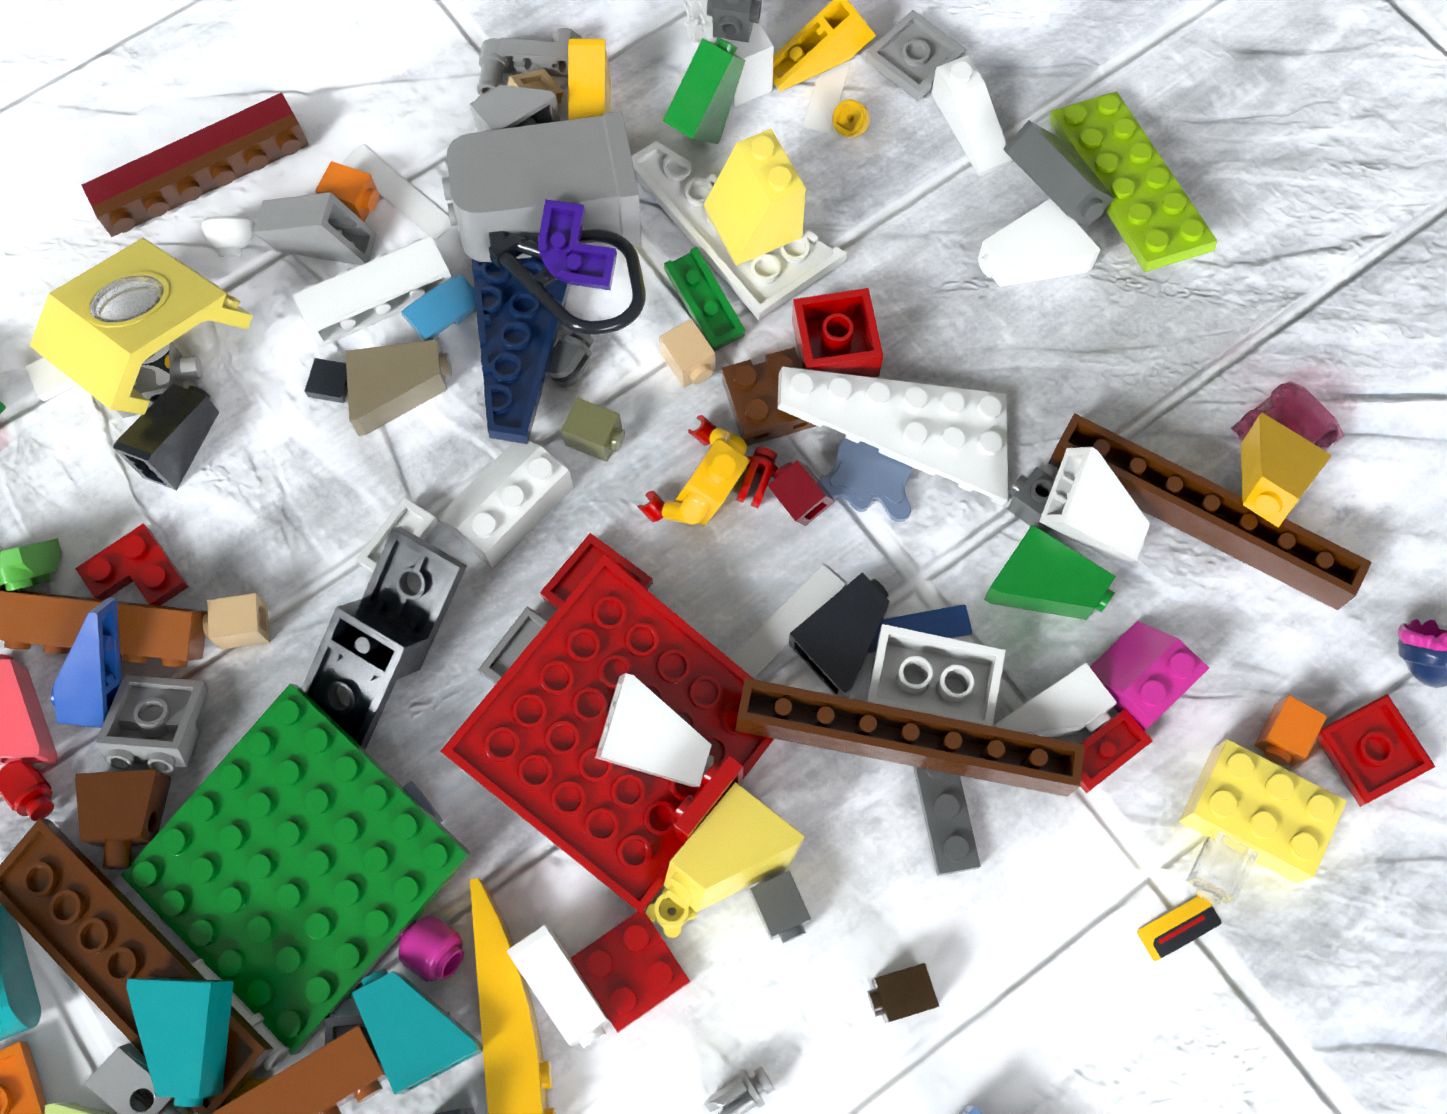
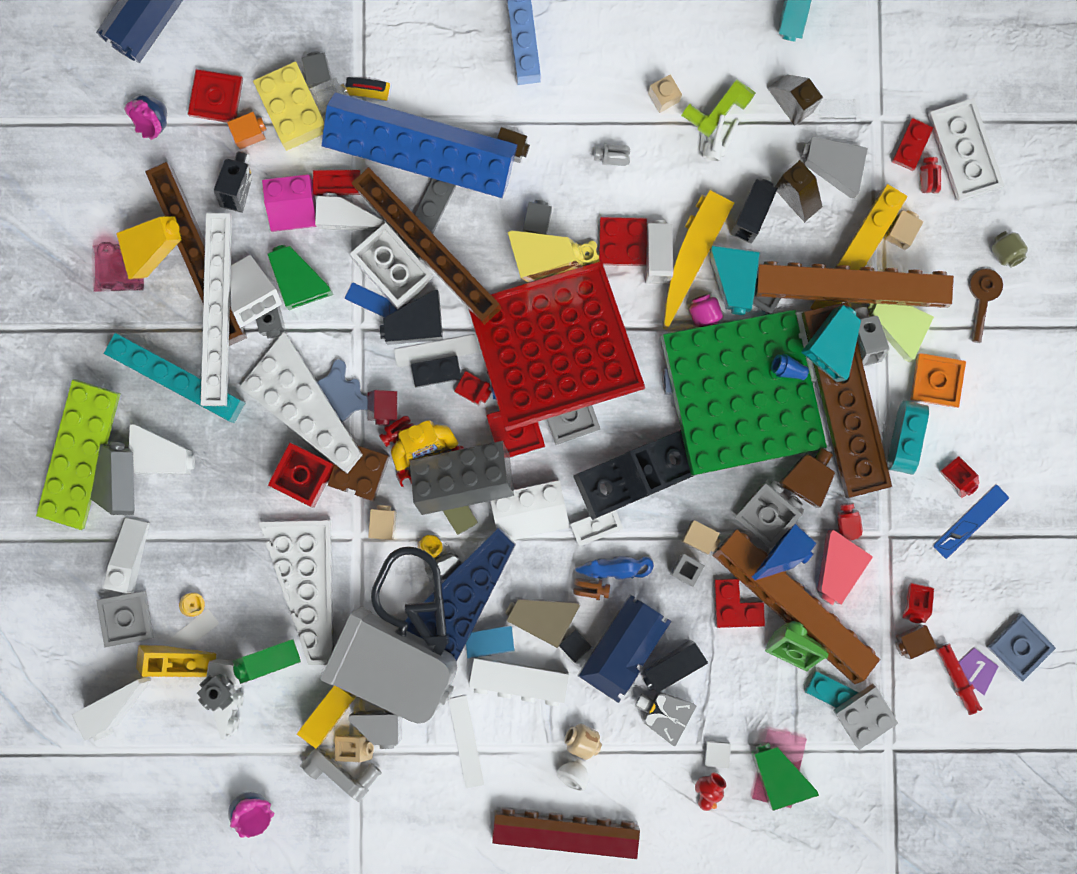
camera: 150 degrees left, 15 degrees up
(24, 322) = (711, 791): none -> red animal
(123, 313) = (657, 739): light yellow panel -> none
(227, 562) = (687, 570): none -> light grey brick
(242, 274) = (583, 741): none -> tan head
(243, 944) = (788, 367): none -> blue cone
(252, 409) = (622, 647): none -> dark blue brick
(315, 228) = (528, 742): light grey slope -> none
(330, 508) = (619, 567): none -> blue animal
(351, 187) = (494, 754): orange brick -> none
(353, 457) = (601, 590): none -> dark orange arm
(565, 255) = (412, 604): dark purple plate -> none
(606, 369) = (431, 545): none -> yellow tile
(621, 466) = (461, 478): none -> dark grey brick
(652, 737) = (544, 327): white slope -> none
(697, 603) = (473, 389): none -> red bracket
(704, 299) = (351, 551): green hinge -> none
(716, 784) = (545, 278): red plate -> none
(757, 199) = (288, 576): light yellow slope -> none
(764, 593) = (436, 371): none -> black plate
(1036, 884) = (418, 145): none -> blue brick
(1095, 345) = (168, 375): none -> teal brick
(1122, 448) = (216, 309): none -> white plate
(1243, 643) = (234, 183): none -> black torso
(1273, 894) = (316, 69): none -> dark grey brick

